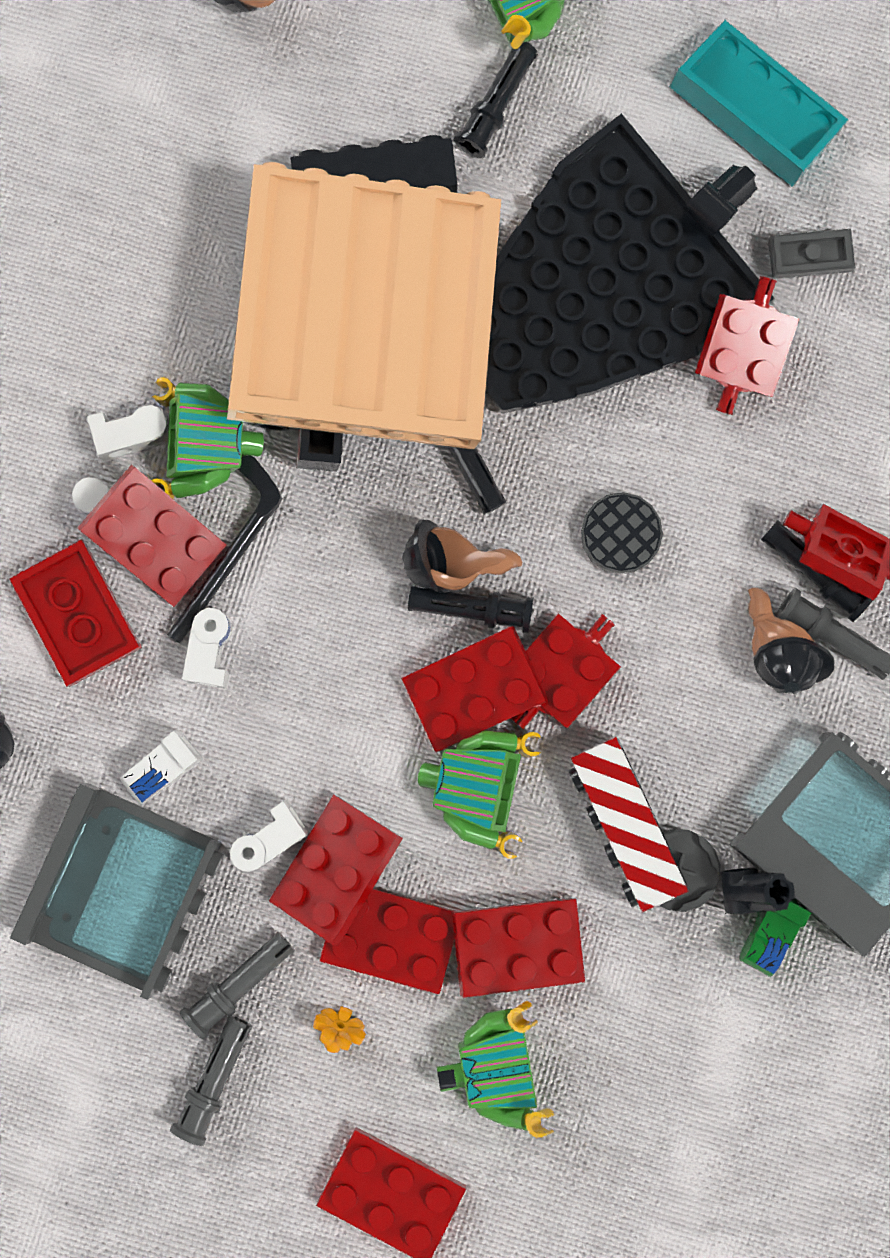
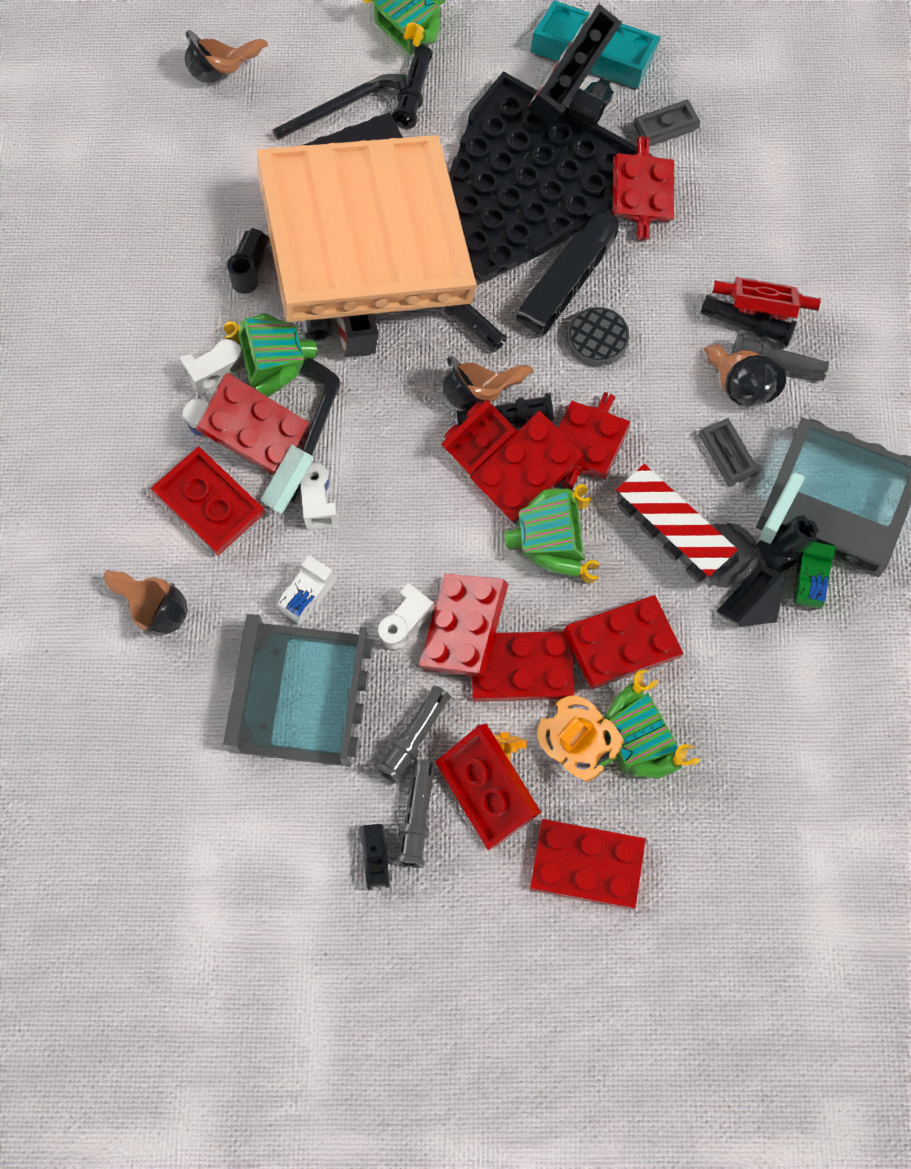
camera: 15 degrees left, 15 degrees down
(152, 1109) = (373, 852): none -> black bar
(176, 618) = (286, 479): none -> light aqua tile
(213, 292) = (248, 261): none -> black piece
(301, 1080) = (487, 786): none -> red plate
(425, 1052) = (578, 737): none -> light orange shield
(427, 636) = (478, 436): none -> red bracket
(461, 76) = (396, 81): none -> black piece
(613, 435) = (568, 273): none -> black piece
(693, 940) = (756, 599): none -> black slope
(713, 146) = (574, 65): none -> black brick
(714, 743) = (729, 477): none -> dark grey tile
(761, 852) = (781, 507): none -> light aqua tile

